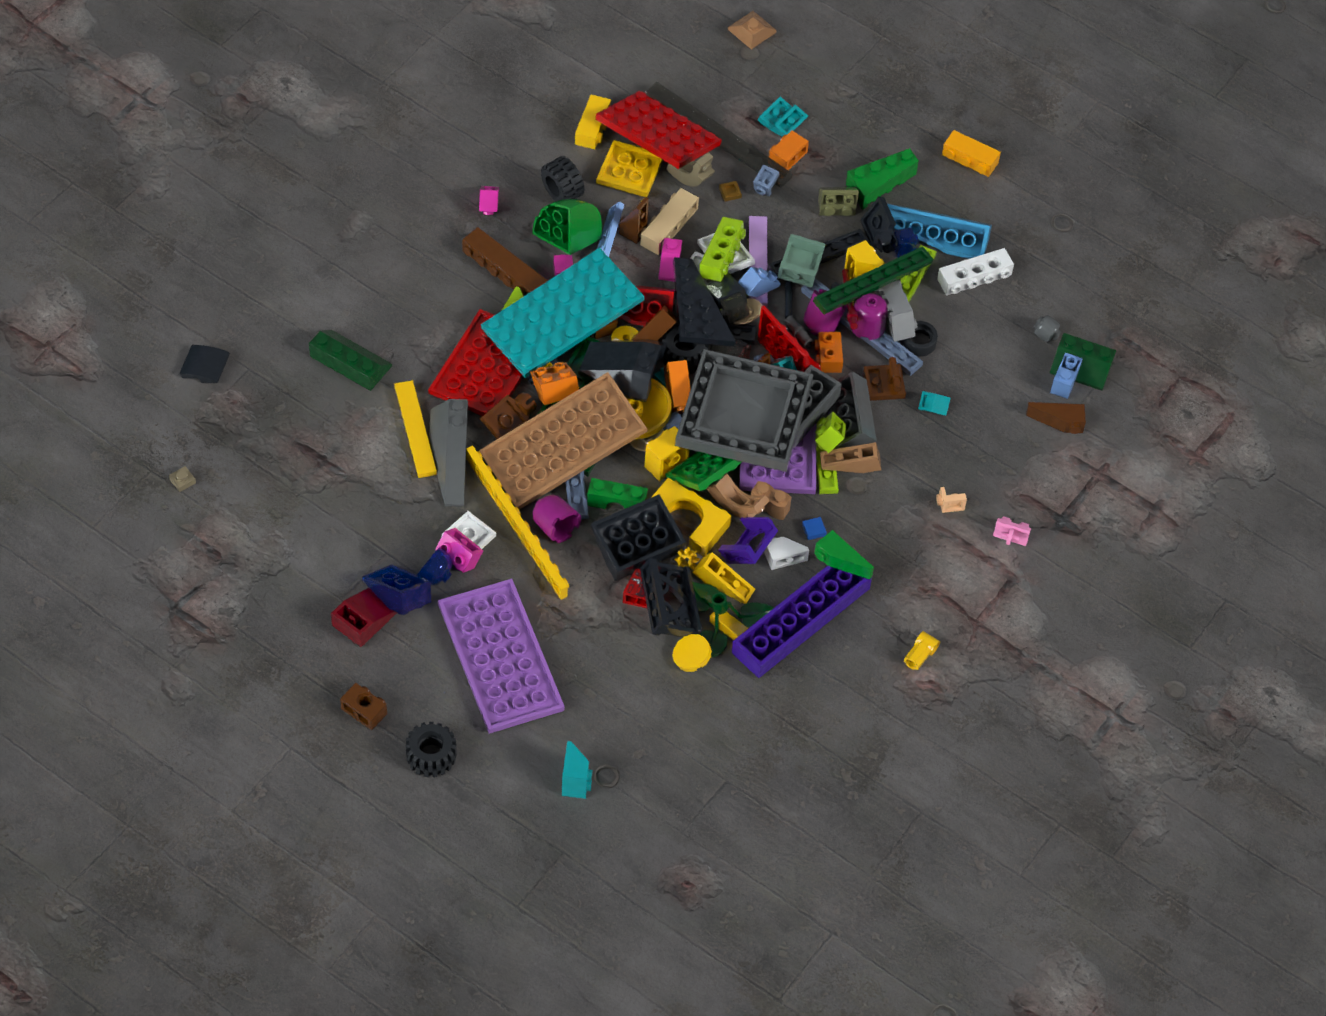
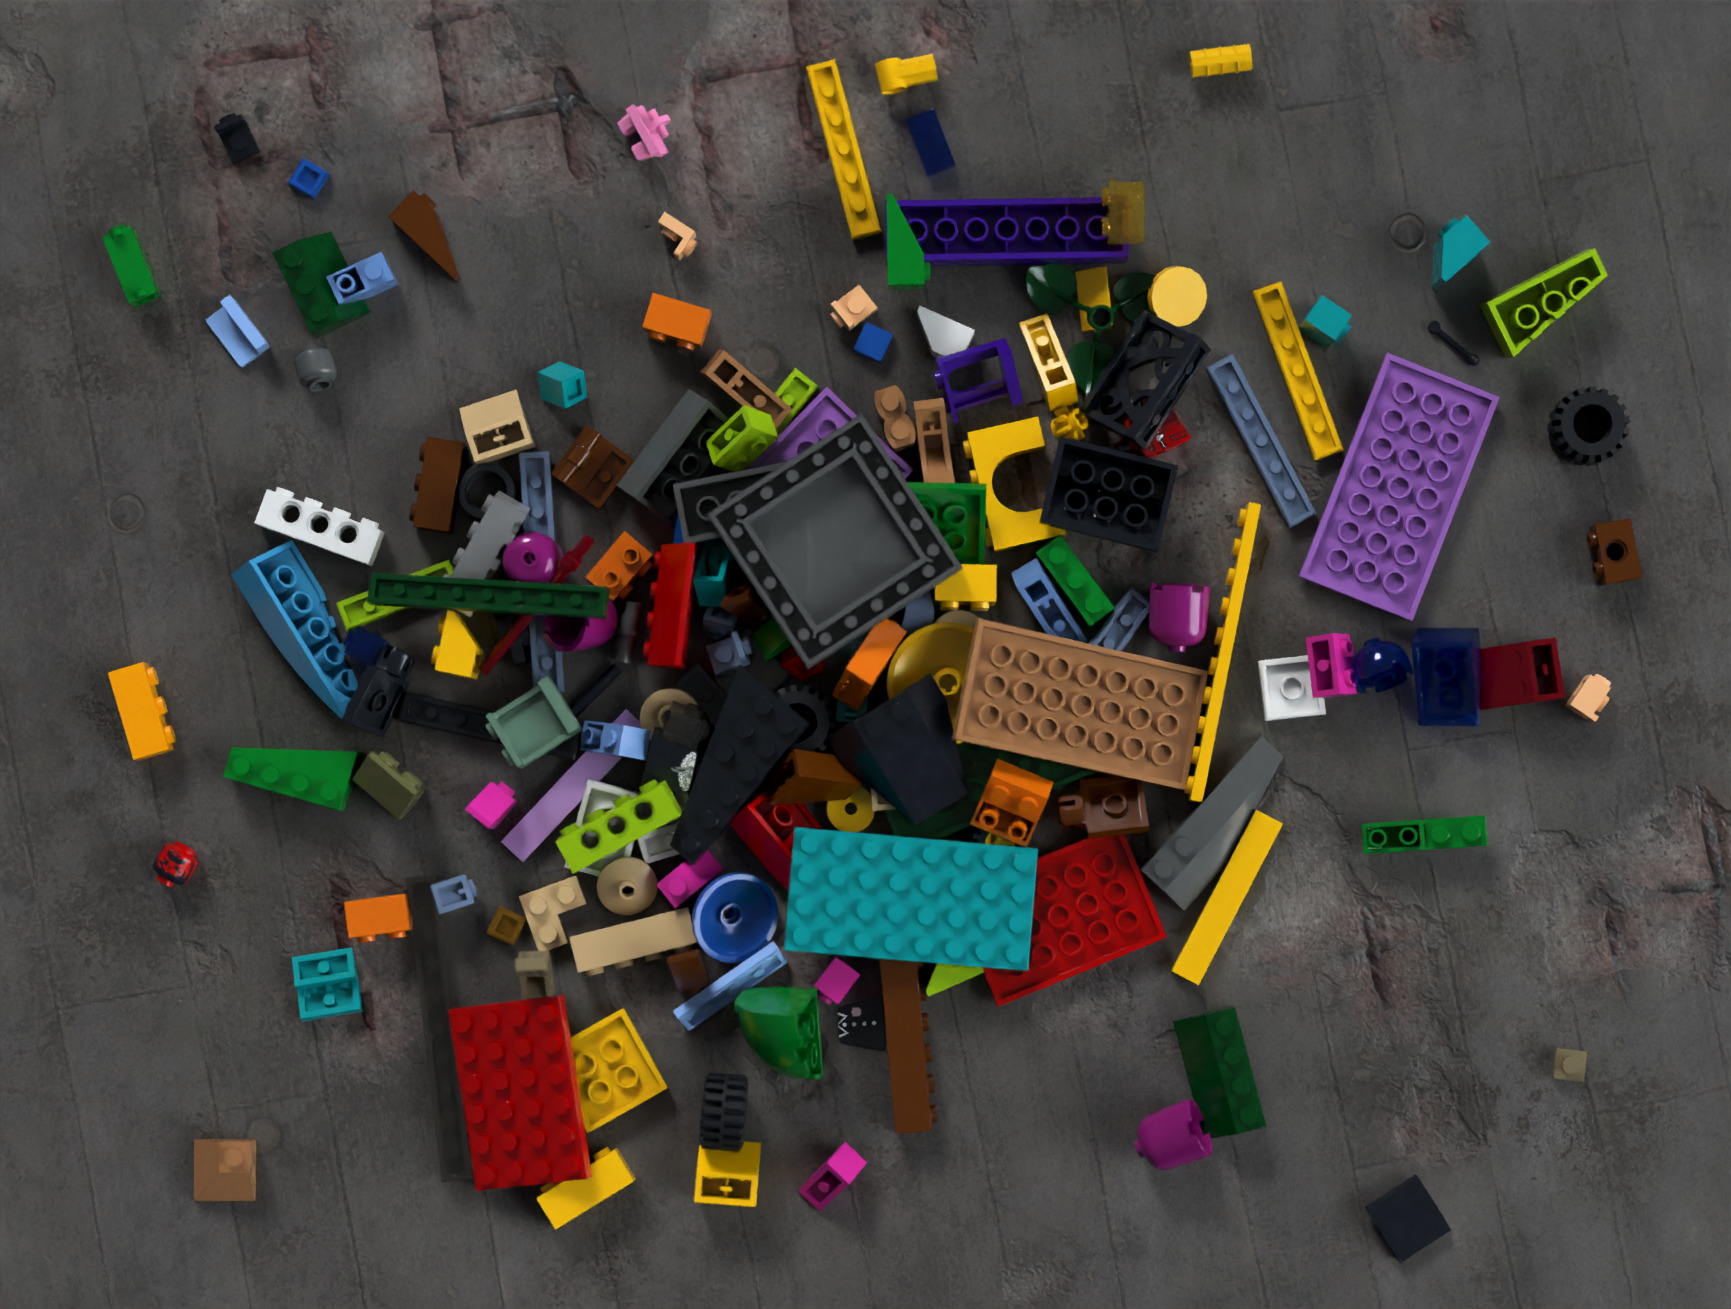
camera: 135 degrees left, 30 degrees up
(316, 633) = (1589, 697): none -> light nougat brick
(346, 517) = (1424, 834): none -> green slope
(347, 313) = (1173, 1136): none -> magenta cylinder
(510, 787) = (1531, 306): none -> lime wedge
(529, 162) = (728, 1176): none -> yellow slope
(537, 263) = (862, 1023): none -> black sticker
(551, 742) = (1434, 327): none -> black hinge
(588, 626) = (1260, 441): none -> sand blue tile
(600, 670) = (1297, 371): none -> yellow tile
(608, 691) = (1326, 323): none -> teal brick
(630, 474) = (1046, 601): none -> medium blue slope
(635, 254) = (748, 924): none -> blue dish
(695, 238) = (622, 873): none -> tan dish
(718, 207) = (543, 911): none -> tan plate
(745, 350) = (729, 653): none -> sand blue bracket
(755, 653) = (1124, 212): none -> clear yellow bracket
(778, 775) = (1220, 60): none -> yellow axle
(785, 219) = (492, 804): none -> dark pink slope
(841, 527) = (852, 308): none -> light nougat bracket
(878, 632) = (930, 142): none -> clear blue plate
(894, 112) = (175, 864): none -> head
(912, 463) = (676, 322): none -> orange brick
(919, 600) = (843, 149): none -> yellow tile
(943, 362) = (496, 427): none -> tan slope
(949, 330) = (438, 485): none -> reddish brown brick
(1096, 321) = (237, 332): none -> light blue panel
(1136, 401) = (308, 178): none -> blue tile
(1169, 308) = (131, 265): none -> green brick
(1184, 393) = (237, 137): none -> black bracket

